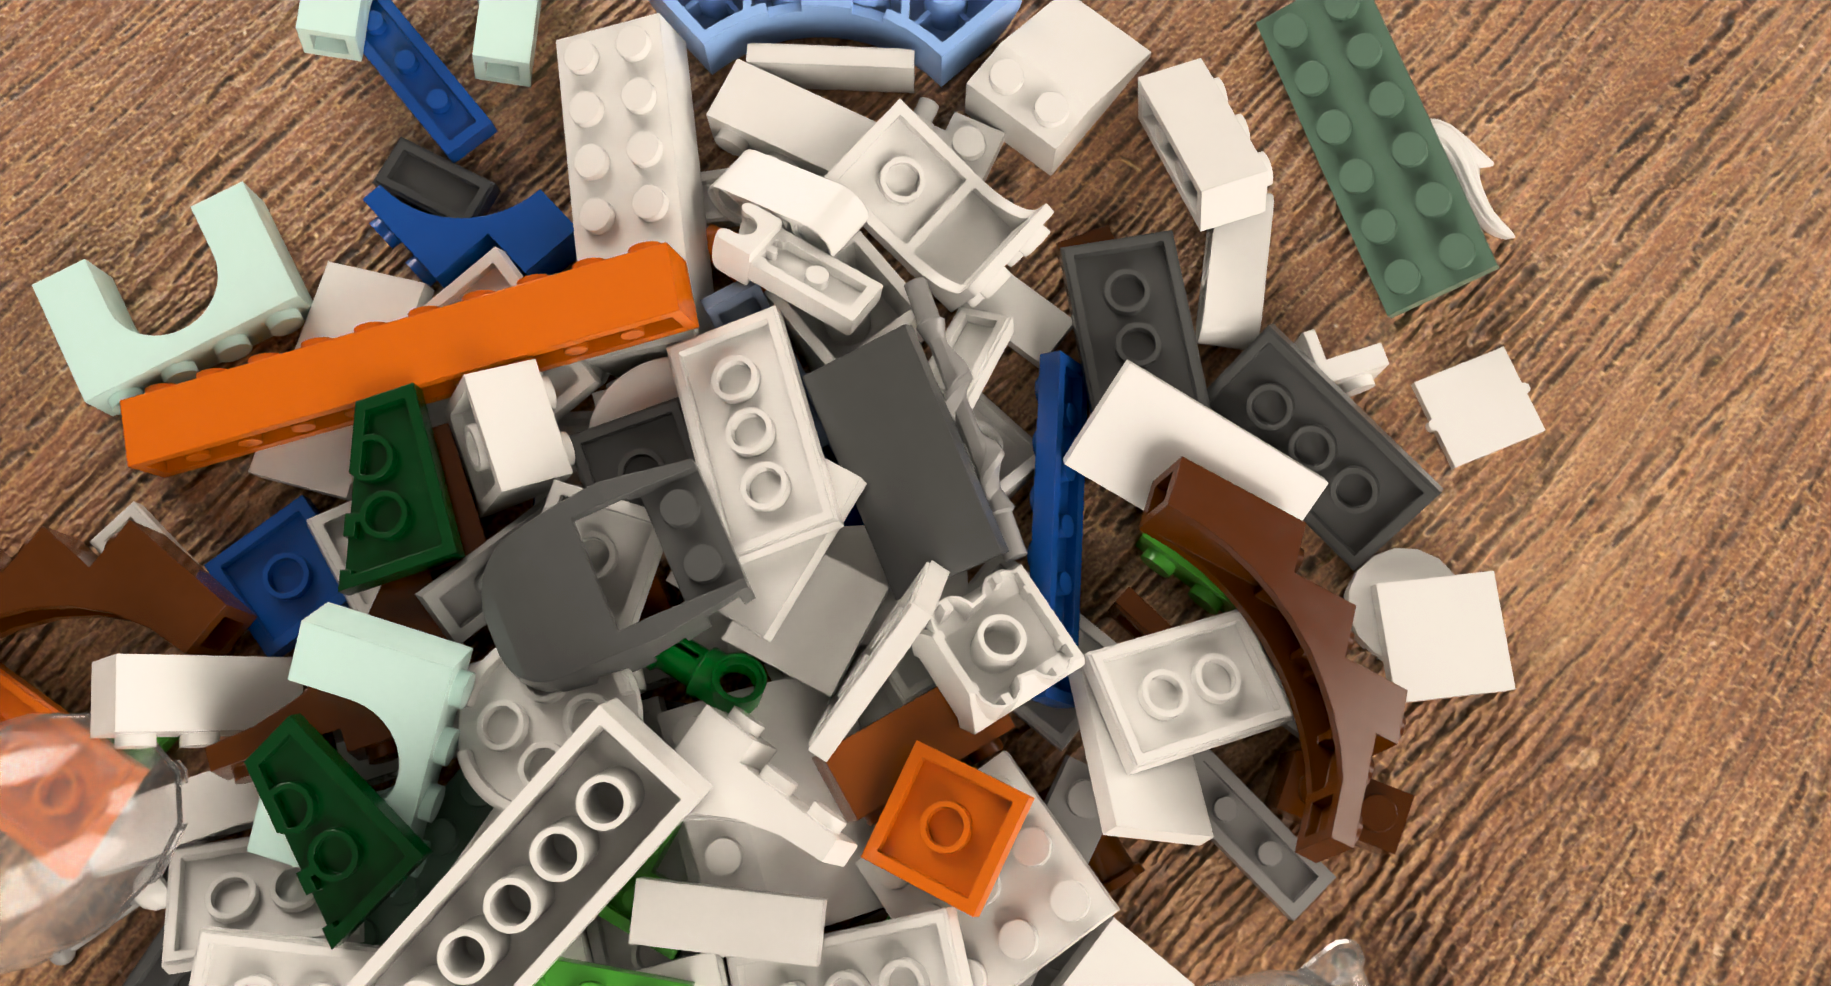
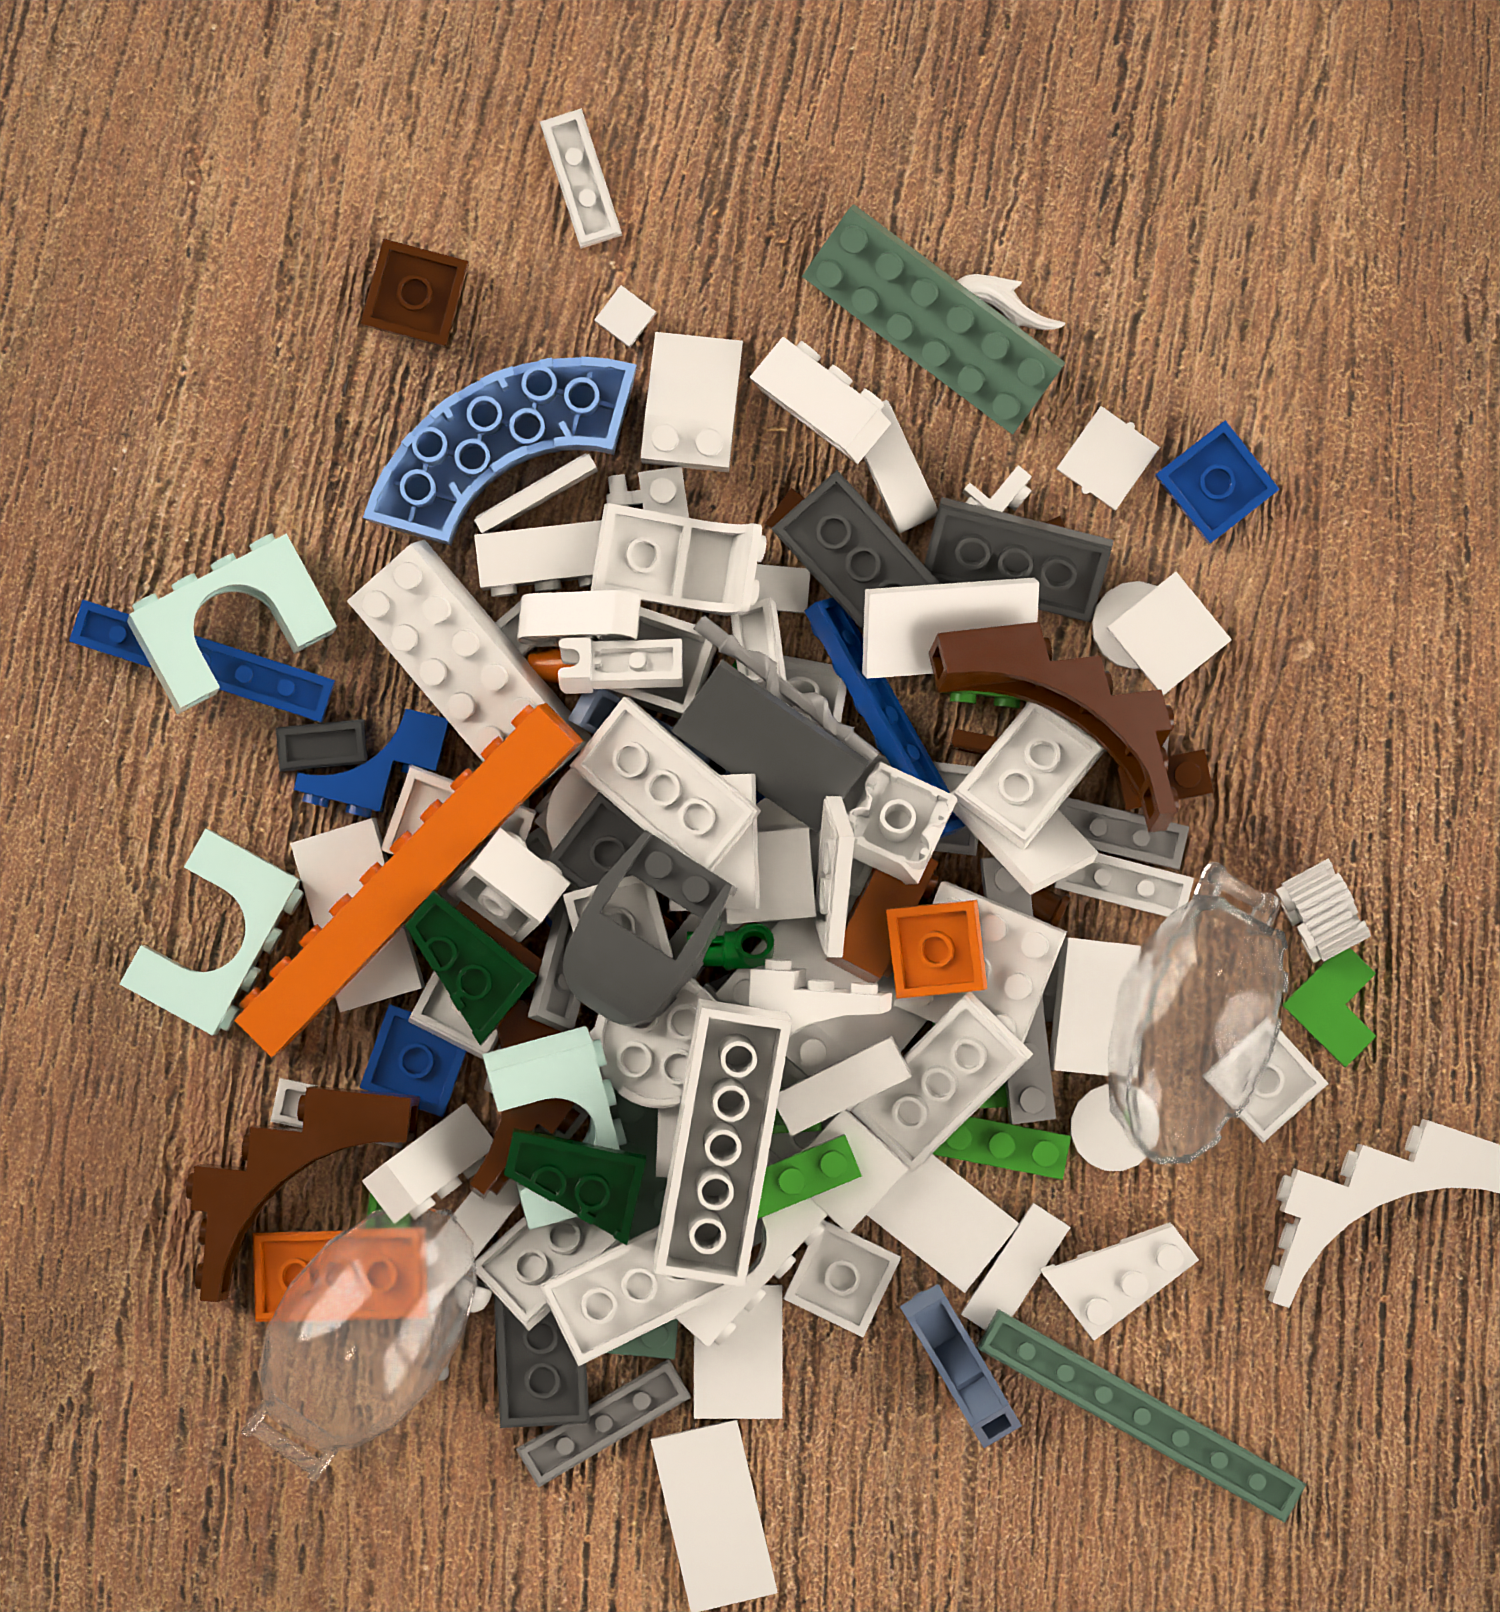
camera: 30 degrees left, 10 degrees up
(1223, 902) = (1129, 885): none -> white plate
(1593, 505) = (1217, 482): none -> blue plate

